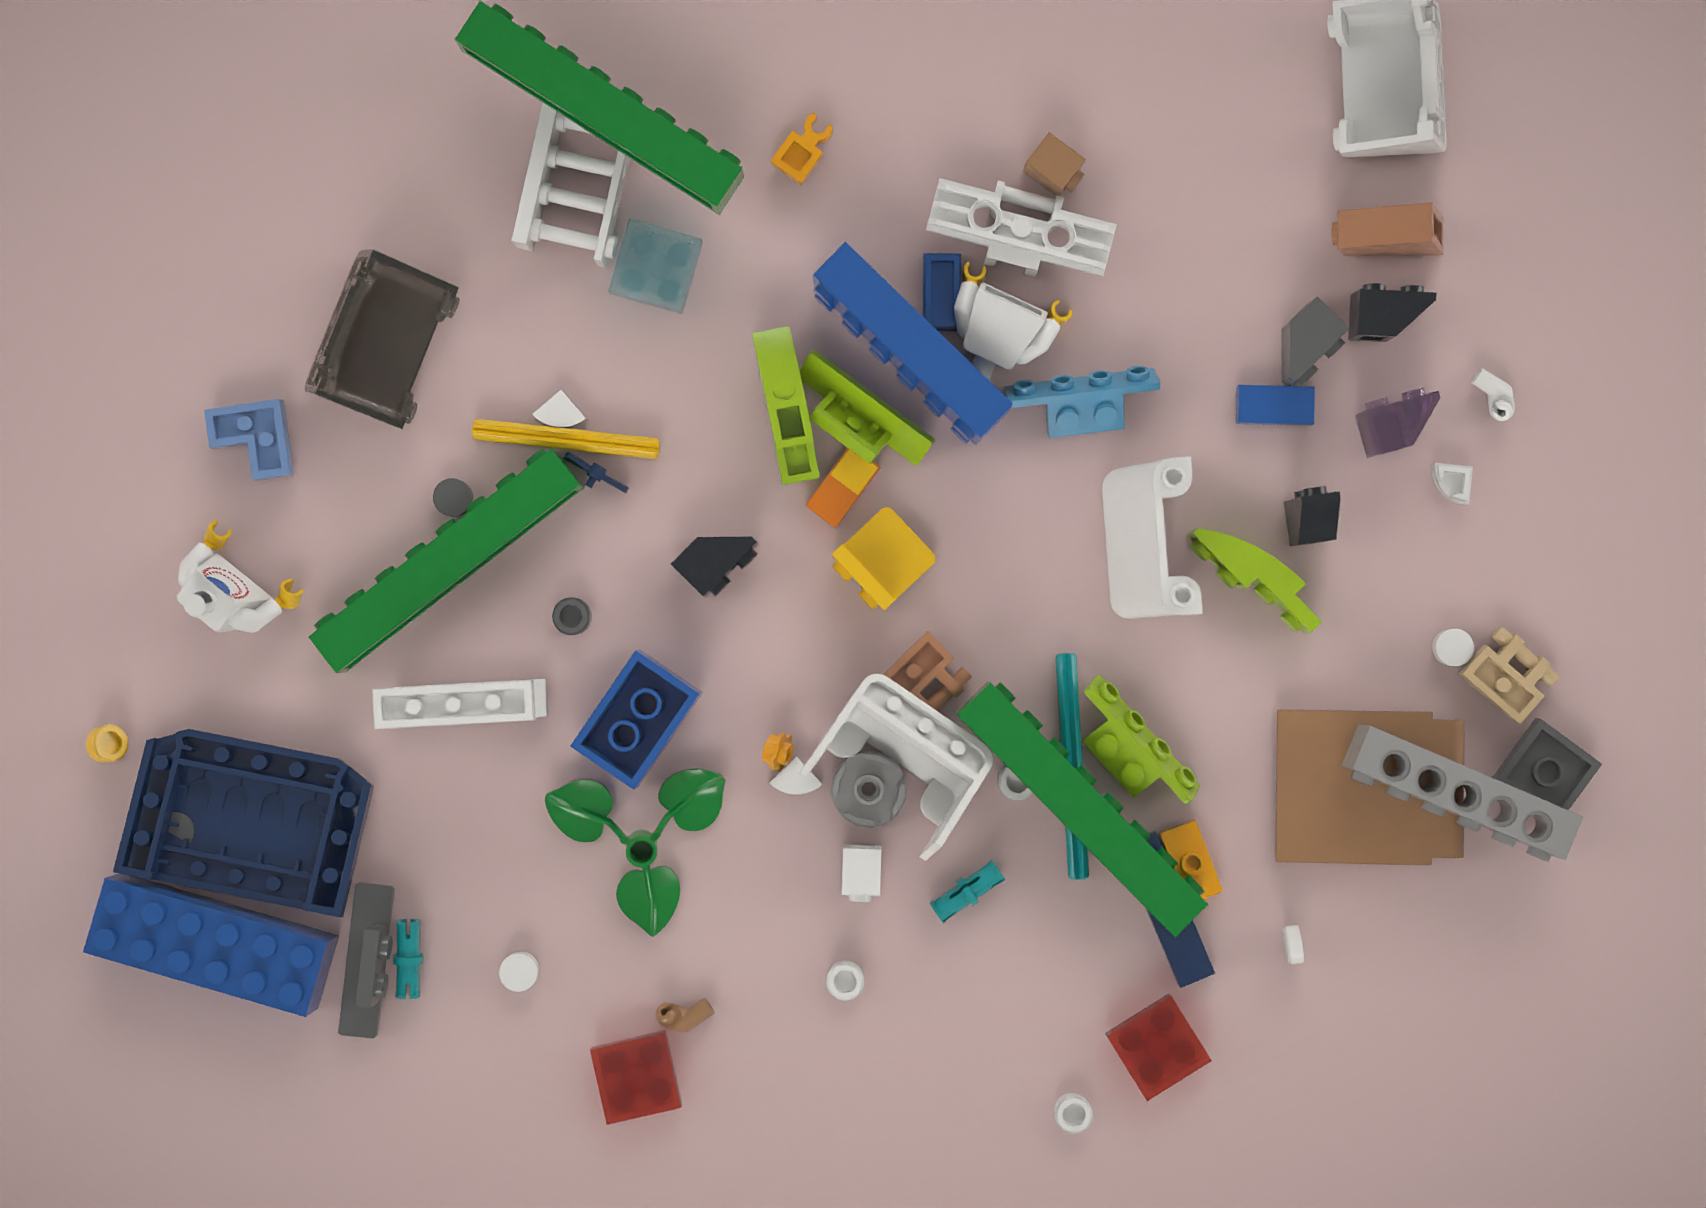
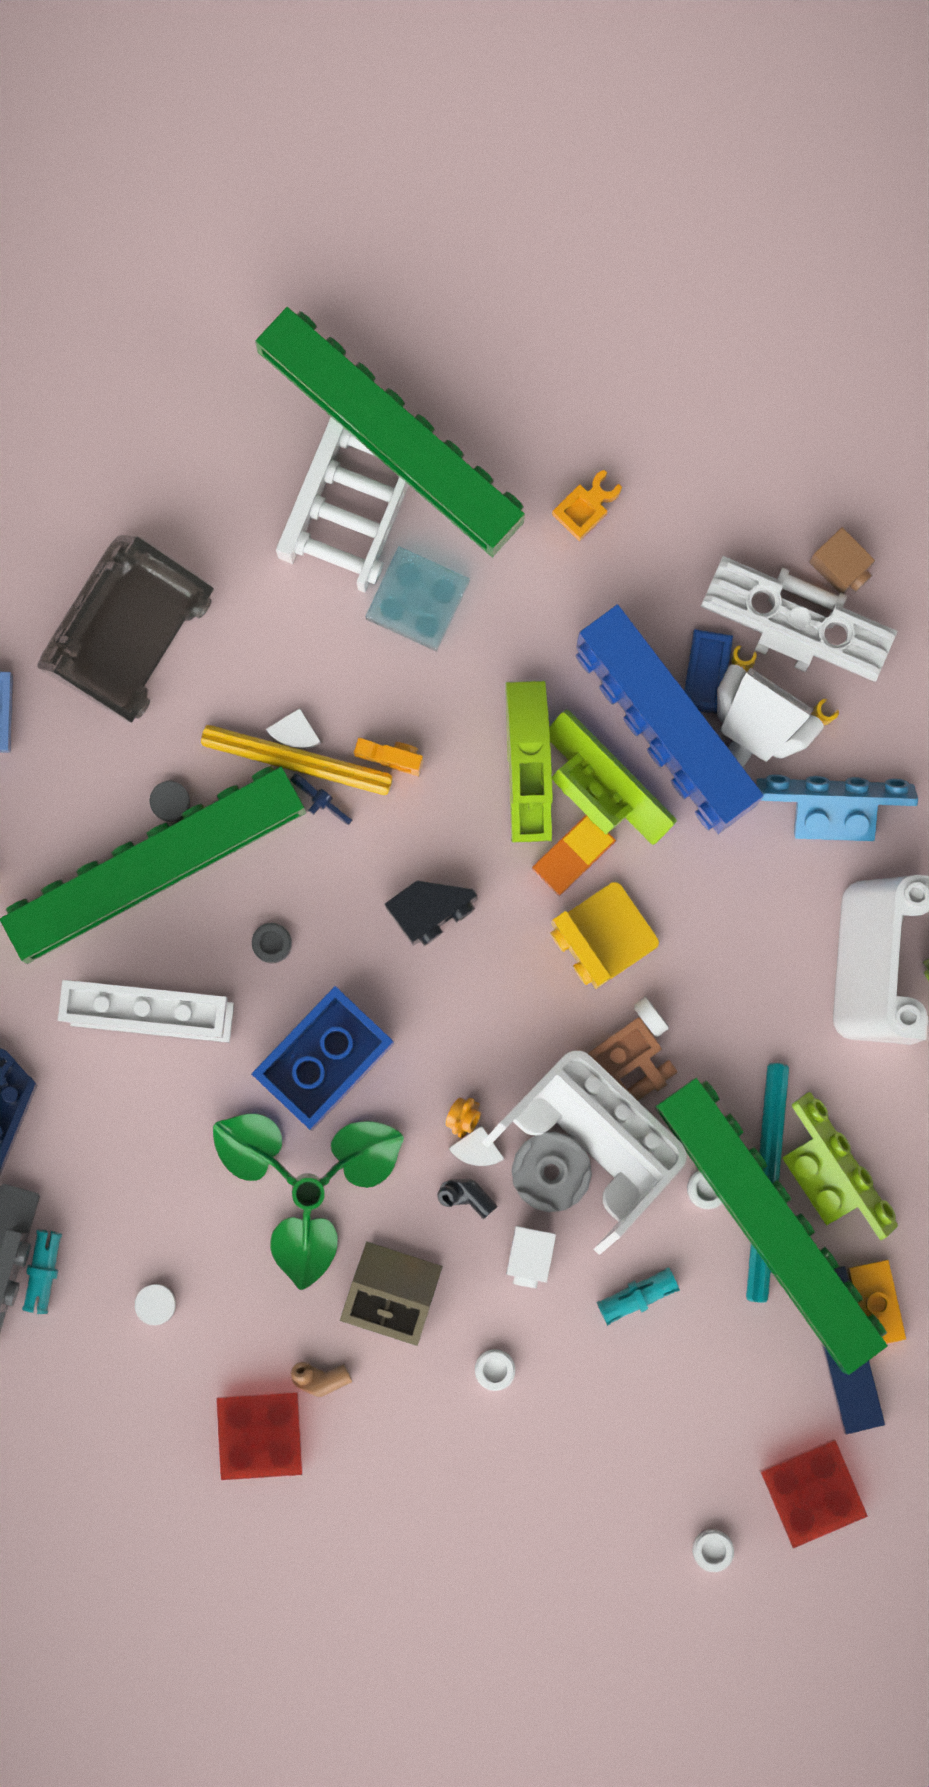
camera: 10 degrees right, 5 degrees down
(663, 421) = (400, 757): none -> light orange plate
(736, 928) = (391, 1293): none -> dark tan slope
(790, 821) = (464, 1193): none -> black arm
(939, 629) = (651, 1017): none -> white tile

